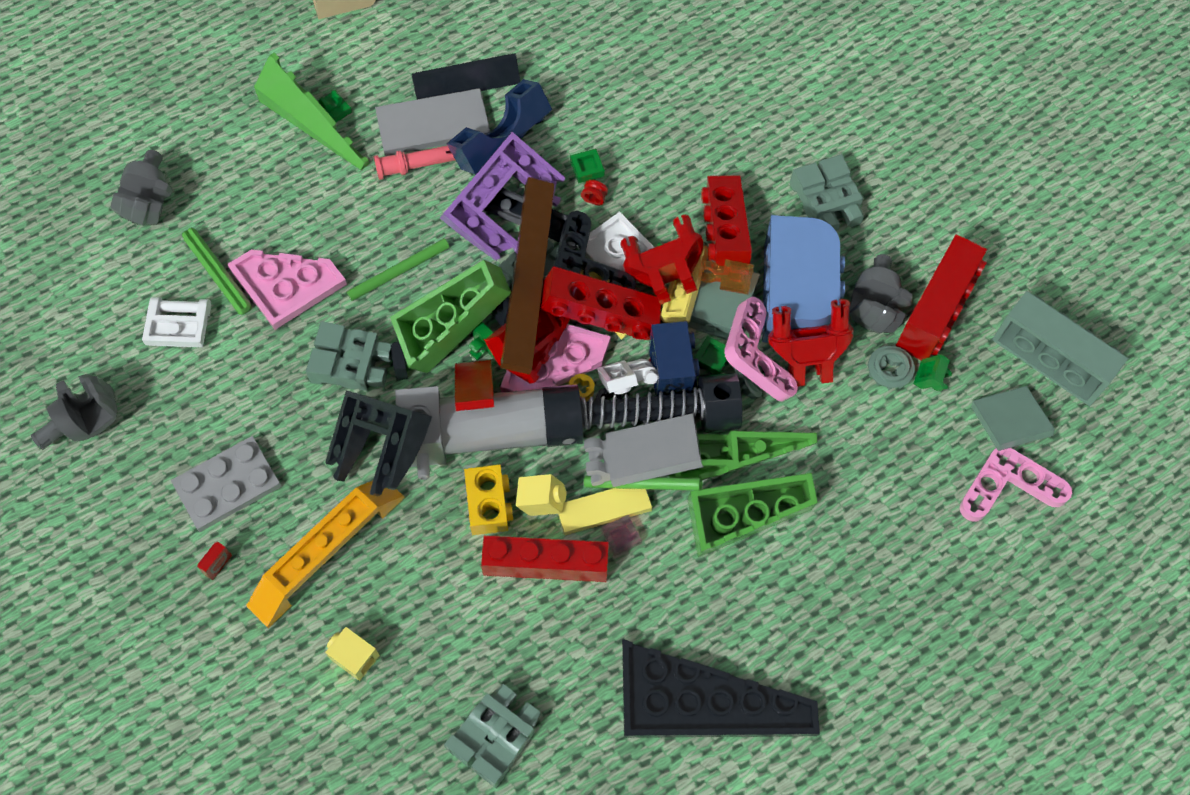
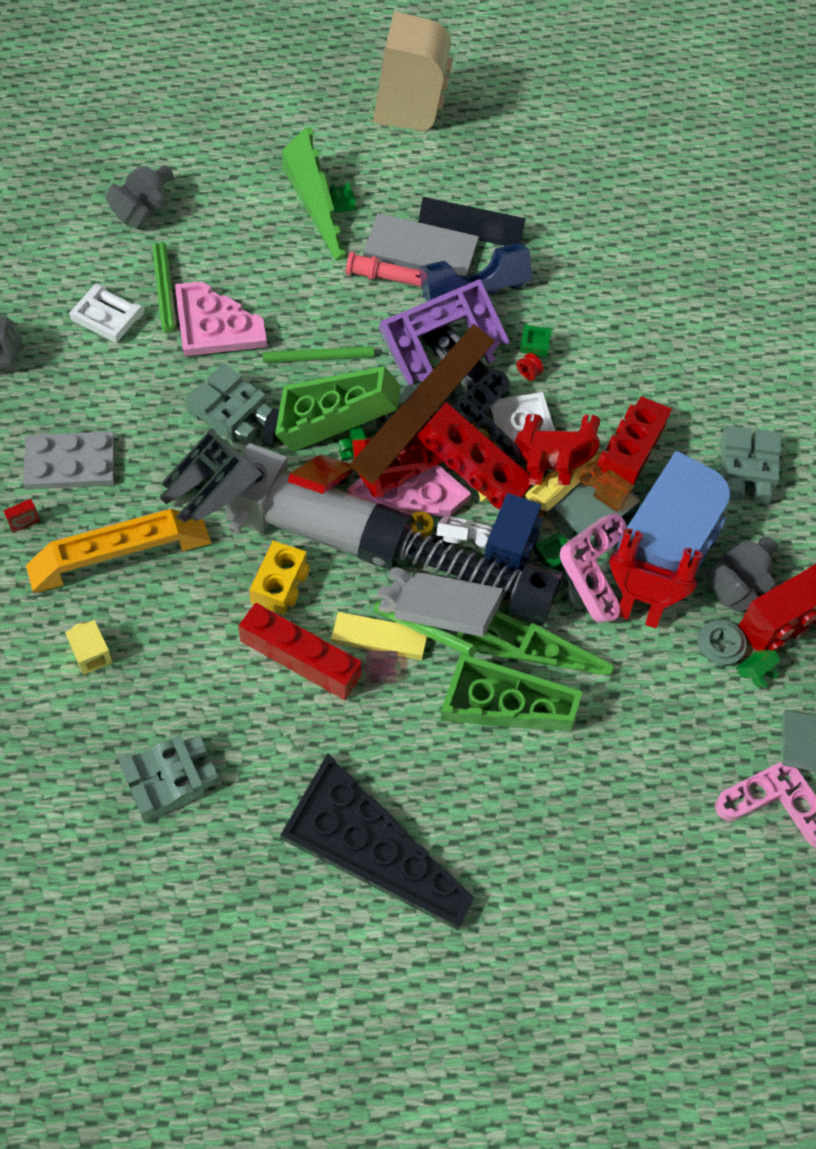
camera: 25 degrees right, 5 degrees down
(540, 495) = (327, 595): light yellow brick -> none

